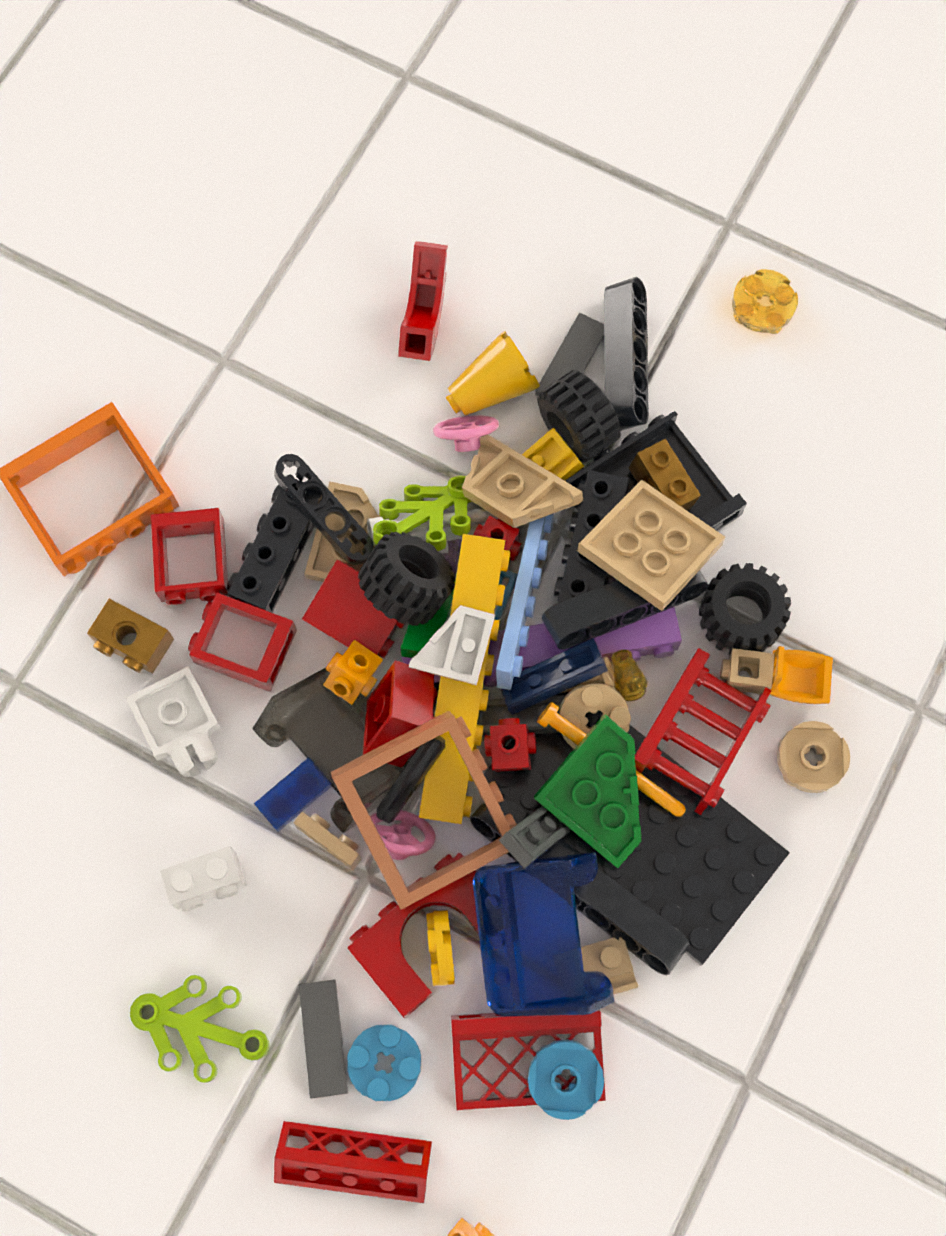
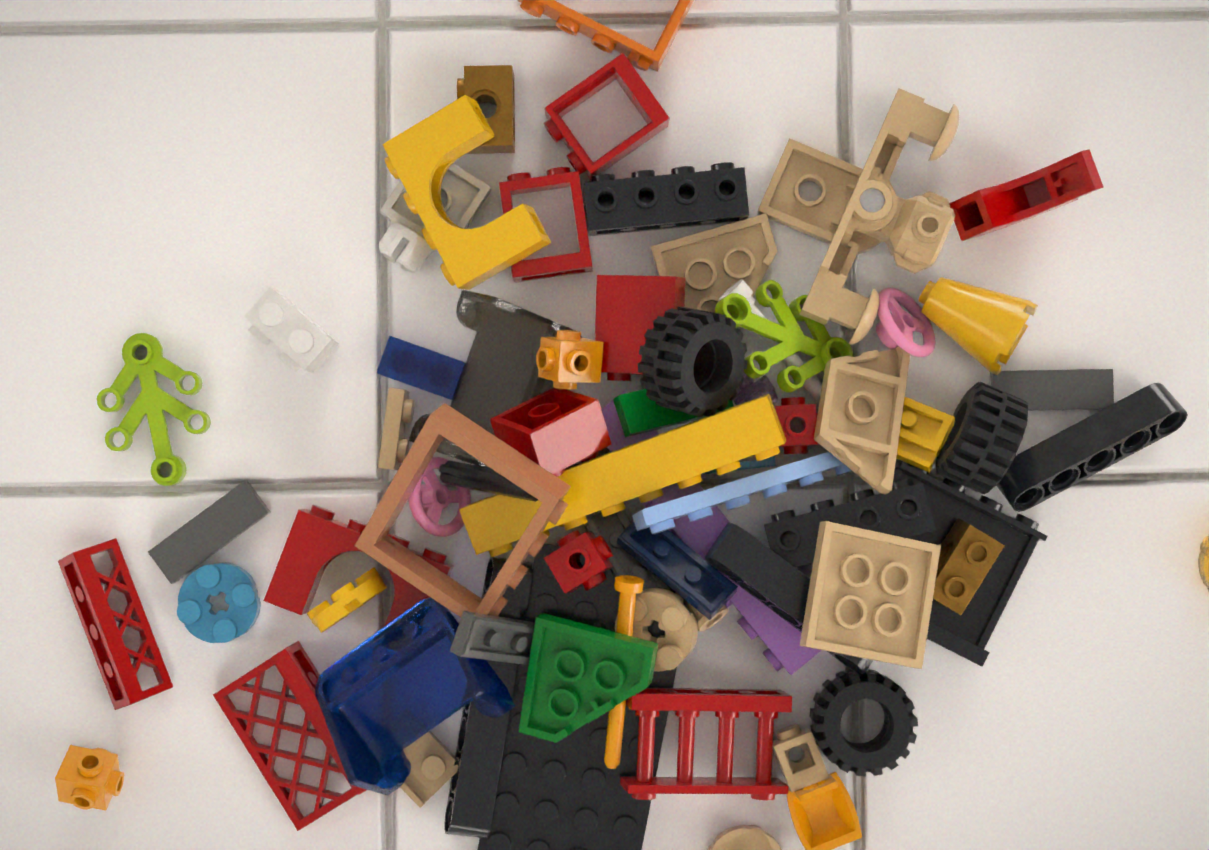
camera: 65 degrees right, 15 degrees up
(135, 698) = (421, 160): none -> yellow arch
(319, 512) = (732, 230): black beam -> none
(368, 412) = (862, 209): none -> tan piece
(457, 646) = (643, 457): white wing -> none
(580, 1095) = (285, 806): dark azure plate -> none
(628, 676) = (723, 639): clear yellow cone -> none

